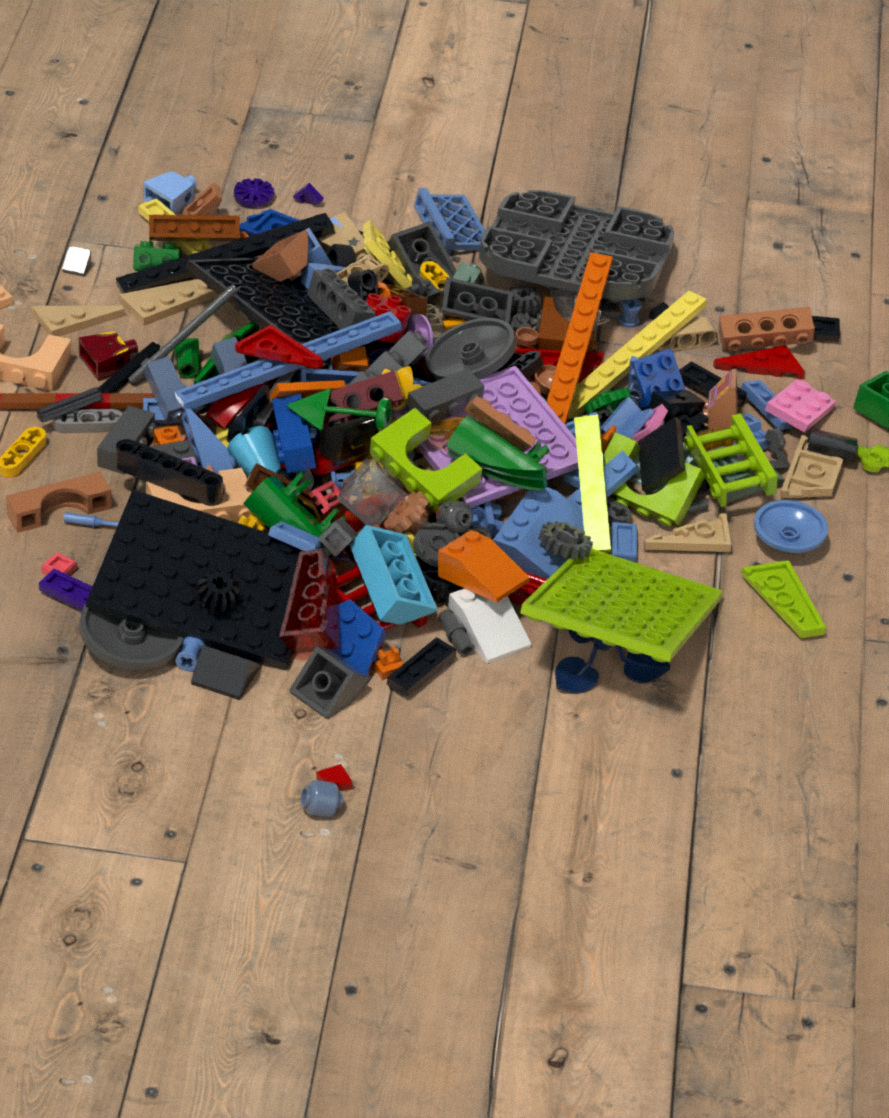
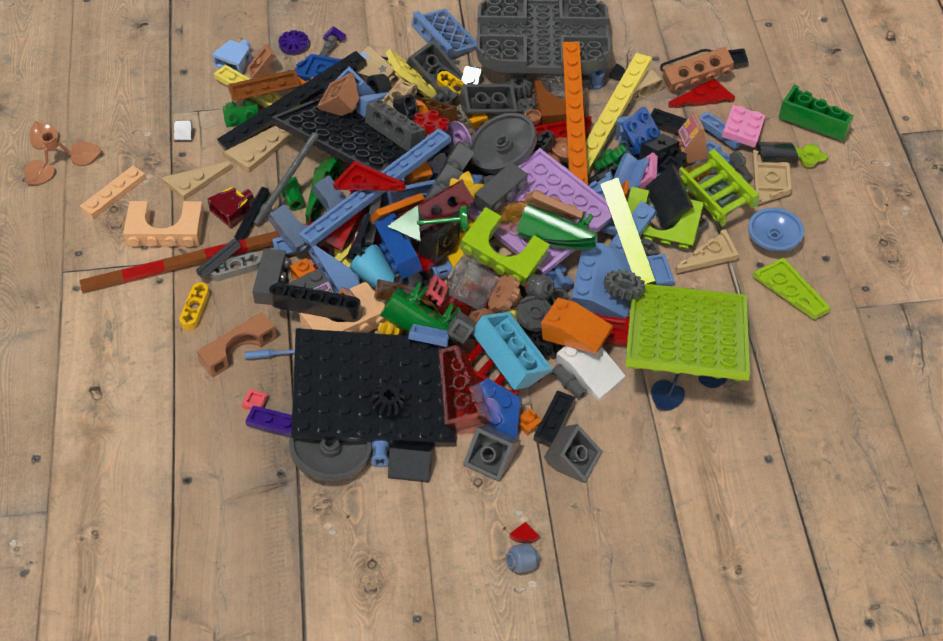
camera: 10 degrees left, 10 degrees up
(297, 205) = (329, 45): none -> dark grey piece
(430, 707) = (573, 453): none -> dark grey slope

